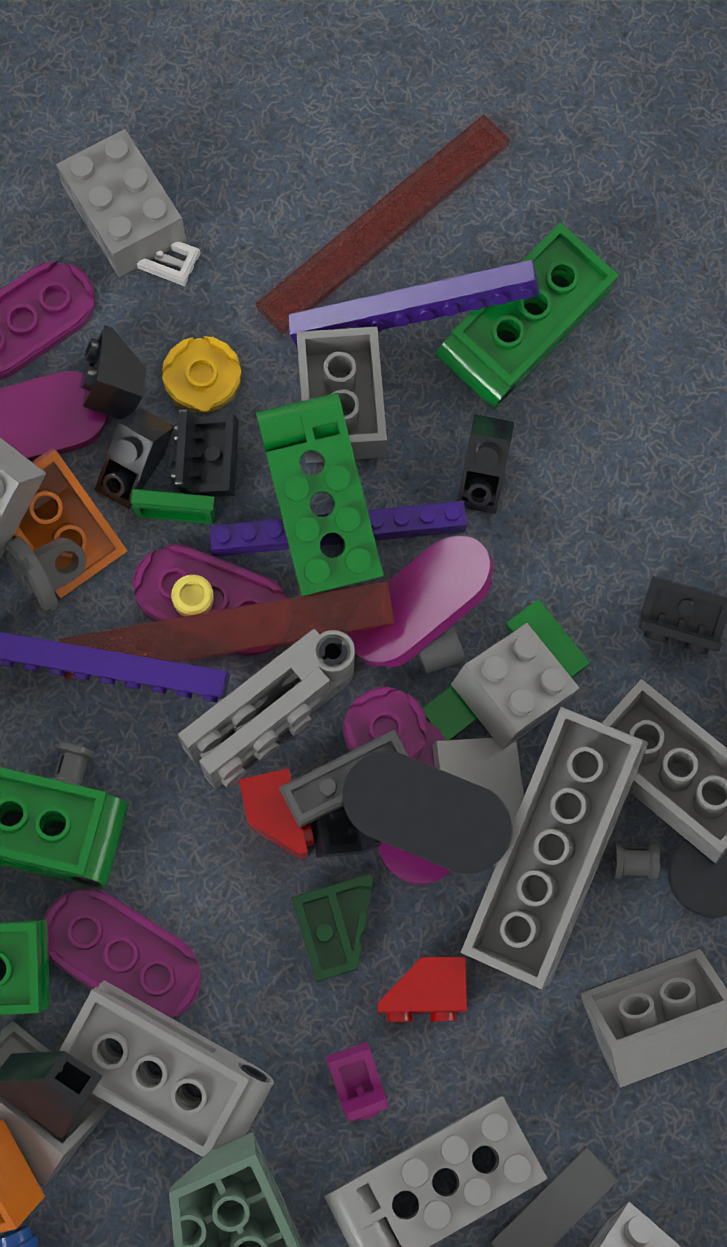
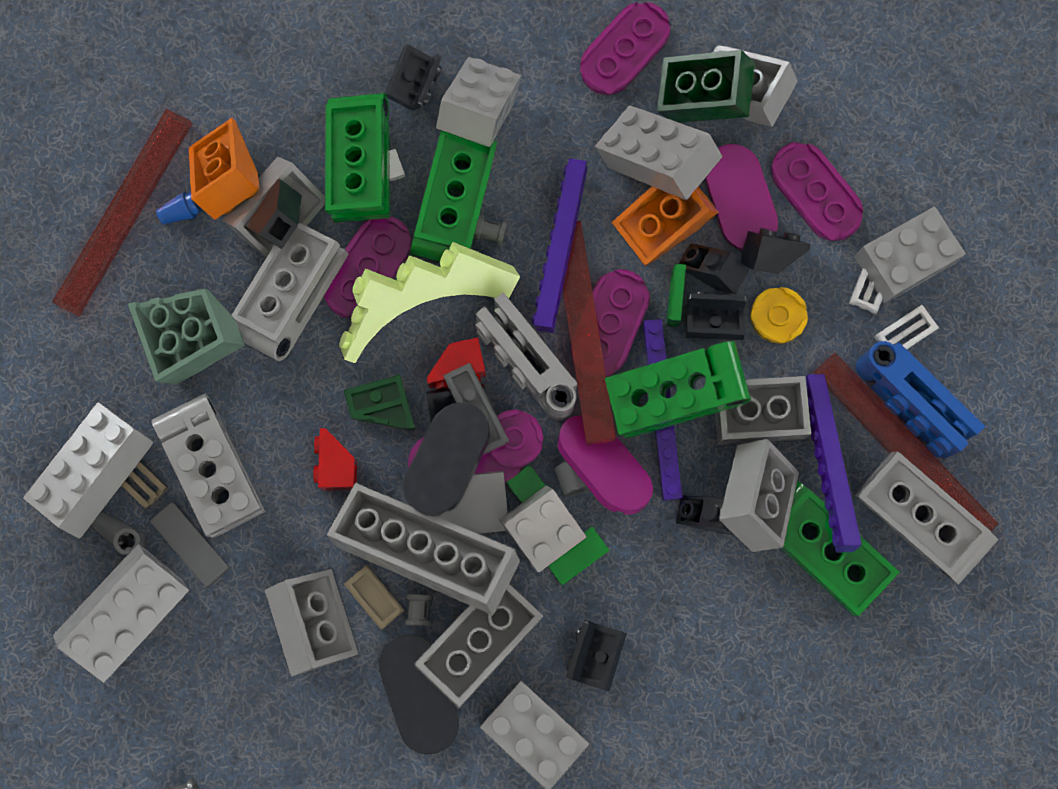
camera: 90 degrees right, 5 degrees up
(38, 571) = (623, 205): dark grey tile -> none
(157, 865) = (417, 282): none -> yellowish green arch
(192, 595) = (610, 308): light yellow tile -> none
(243, 240) = (926, 319): none -> white tile
(324, 196) = (918, 398): none -> blue hinge
(357, 1082) = (276, 416): magenta bracket -> none
(464, 392) = (759, 495): none -> light grey brick
(501, 172) = (967, 536): none -> light grey hinge
(618, 928) = (374, 597): none -> dark tan tile

